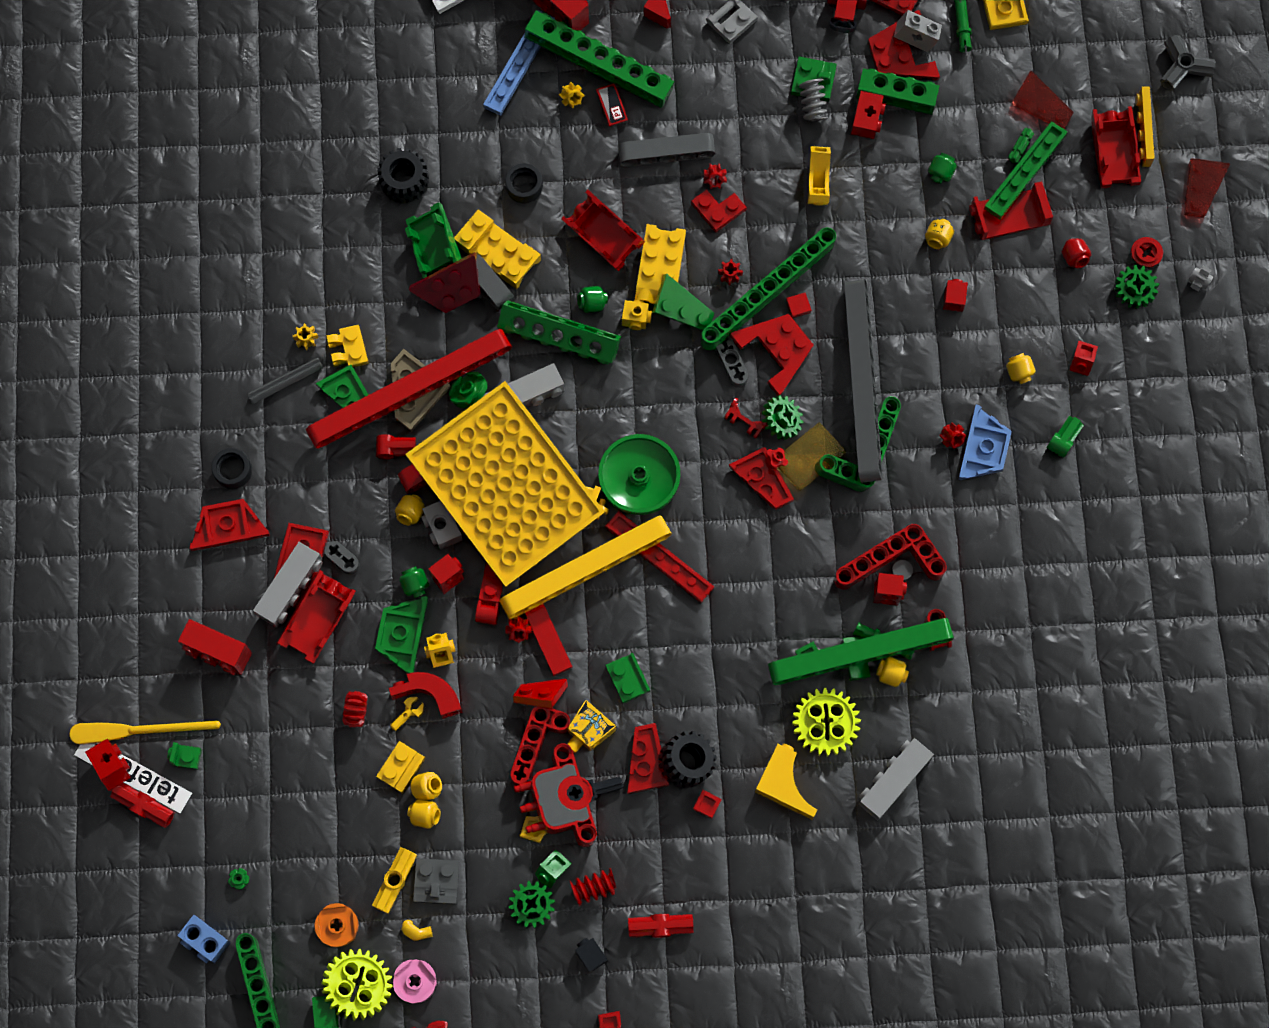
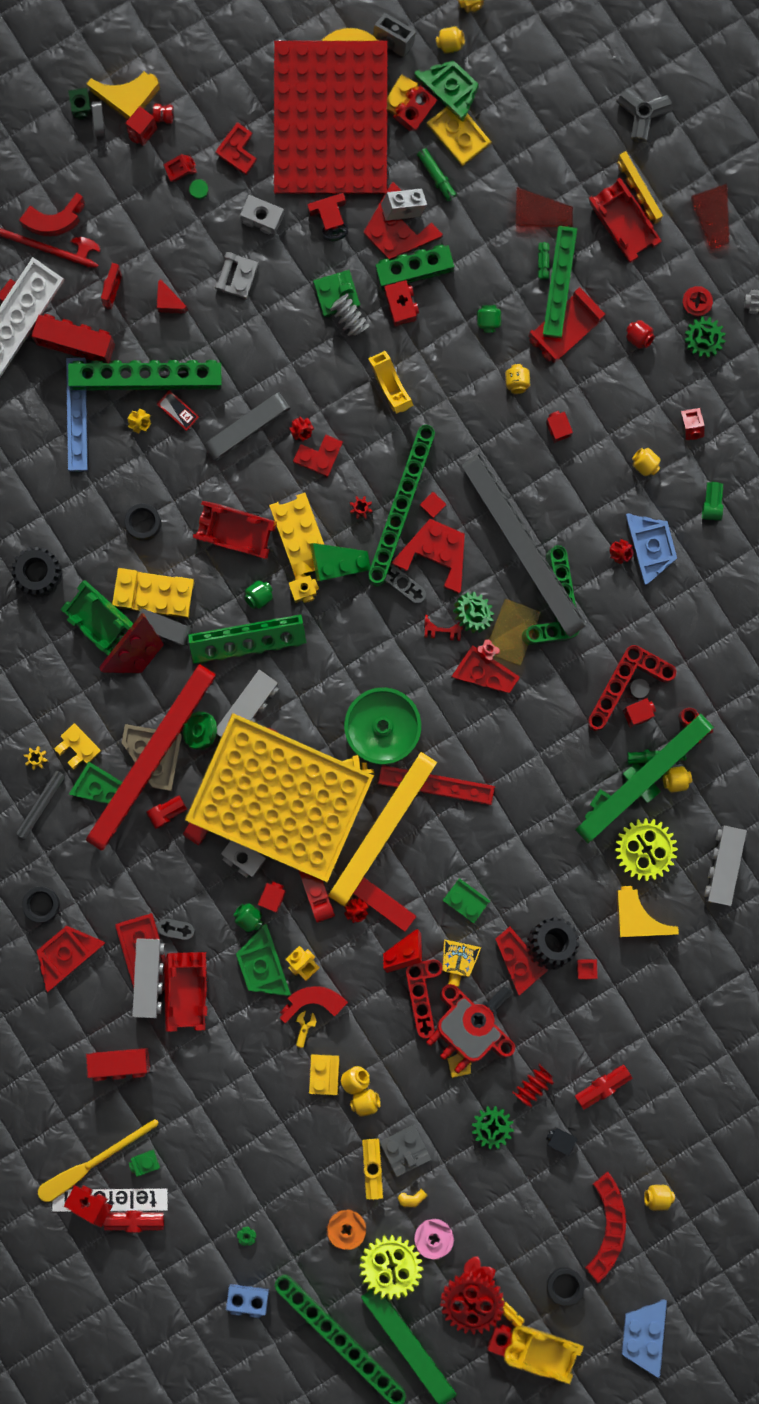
camera: 30 degrees left, 10 degrees up
(355, 709) = (261, 1049): red gear -> none
(409, 509) = (209, 859): yellow head -> none
(552, 868) = (492, 1089): green bracket -> none

